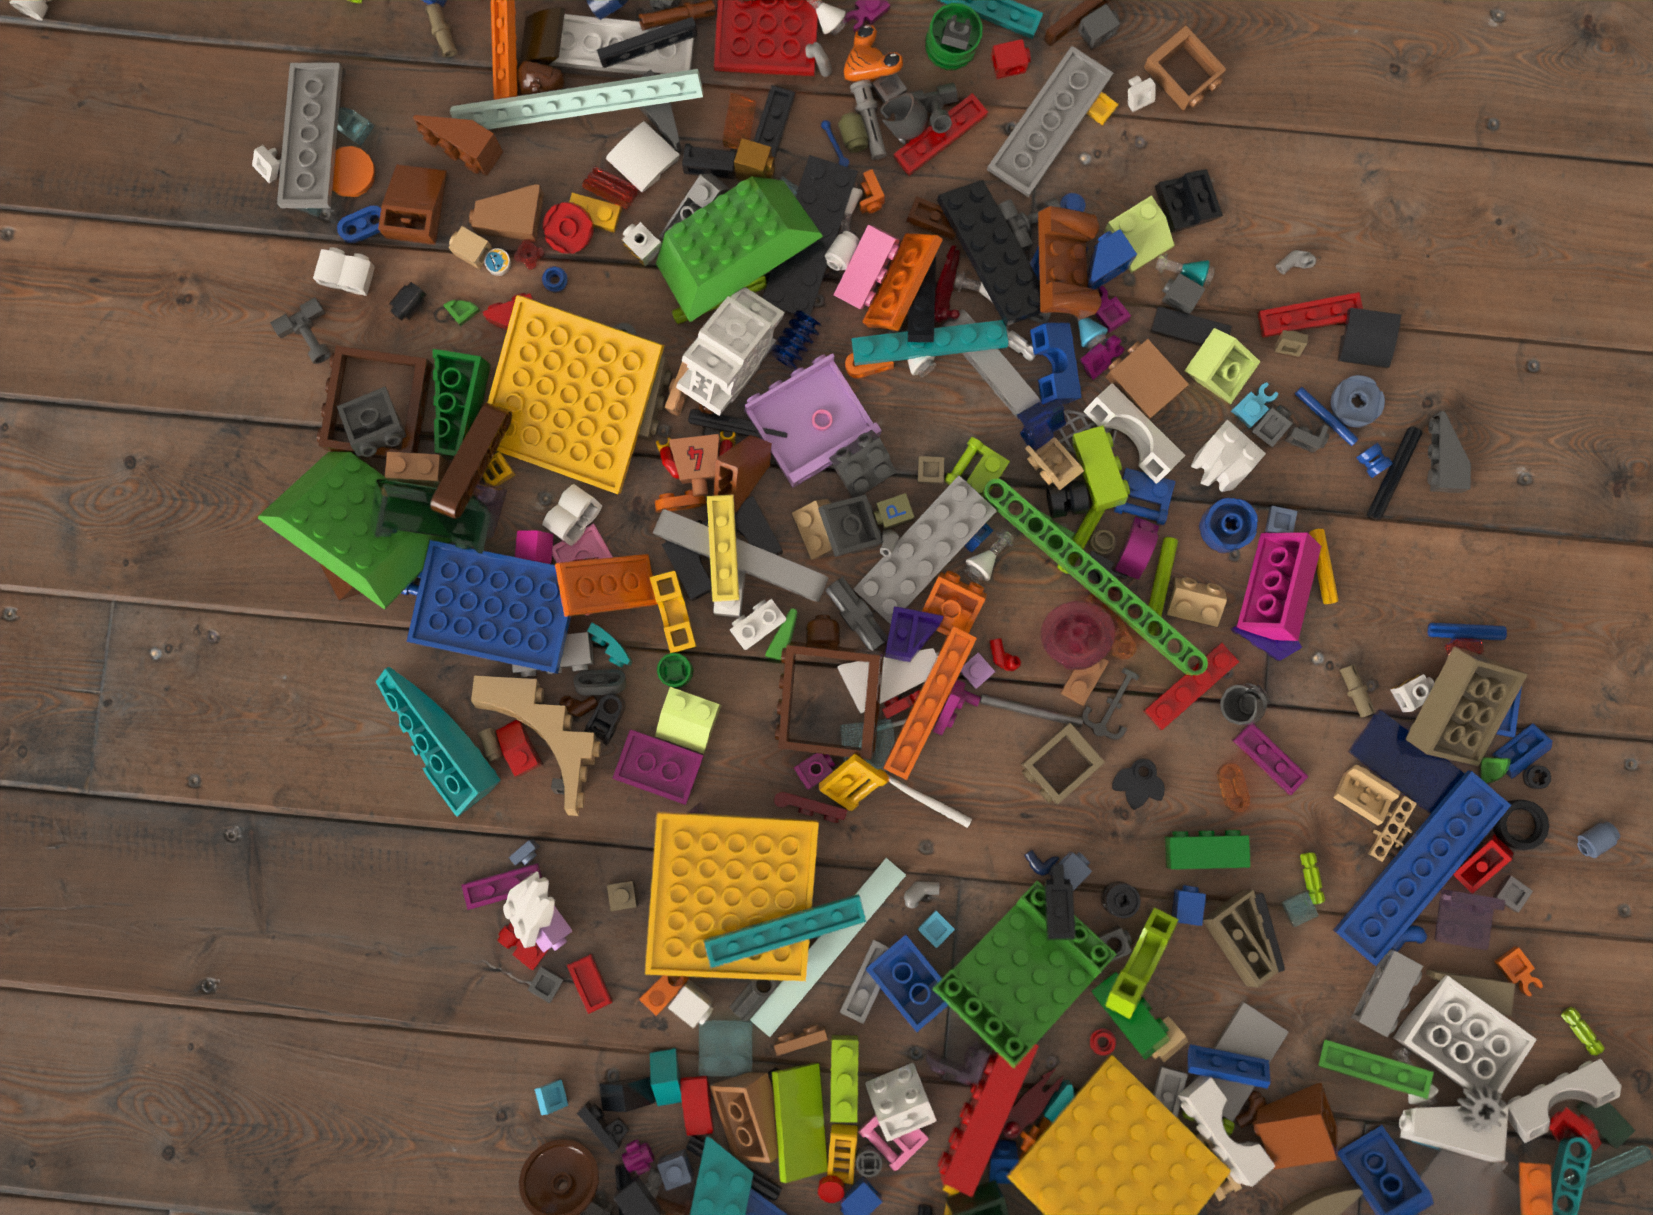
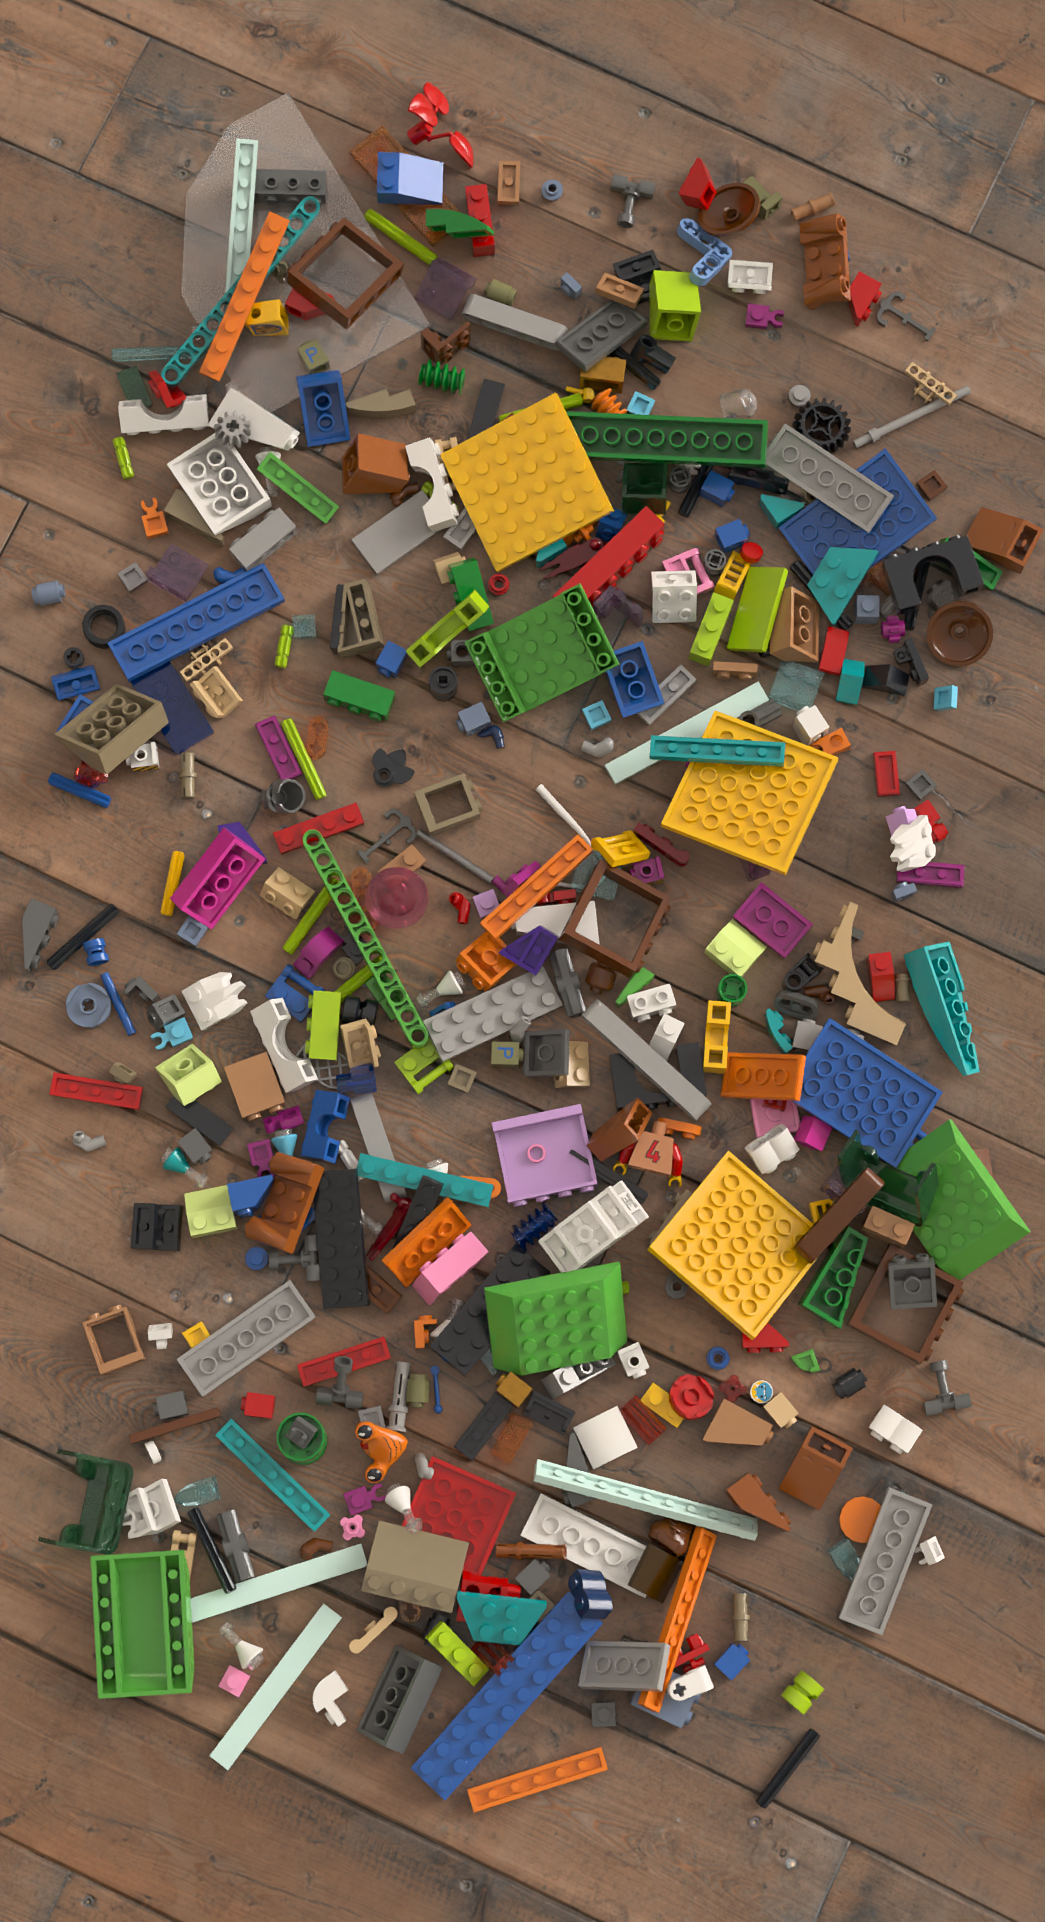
camera: 165 degrees left, 5 degrees down
(362, 222) = (865, 1466): blue plate -> none
(622, 895) = (837, 831): dark tan plate -> none
(647, 42) = (567, 1530): black tile -> none
(676, 397) = (647, 1225): light nougat plate -> none
(723, 548) = (658, 1066): light yellow tile -> none
(841, 251) = (468, 1284): white brick -> none
(863, 464) = (517, 1101): dark grey plate -> none
(909, 114) = (367, 1380): dark grey helmet -> none
(1059, 906) = (495, 693): black hinge -> none
(1228, 1066) = (409, 530): blue plate -> none
(1239, 757) = (303, 759): none -> lime axle
(1241, 532) = (247, 933): blue brick -> none
(1369, 337) = (56, 1053): black slope -> none
(1484, 863) = (146, 607): red slope -> none
(1494, 769) = (106, 676): bright green tile -> none

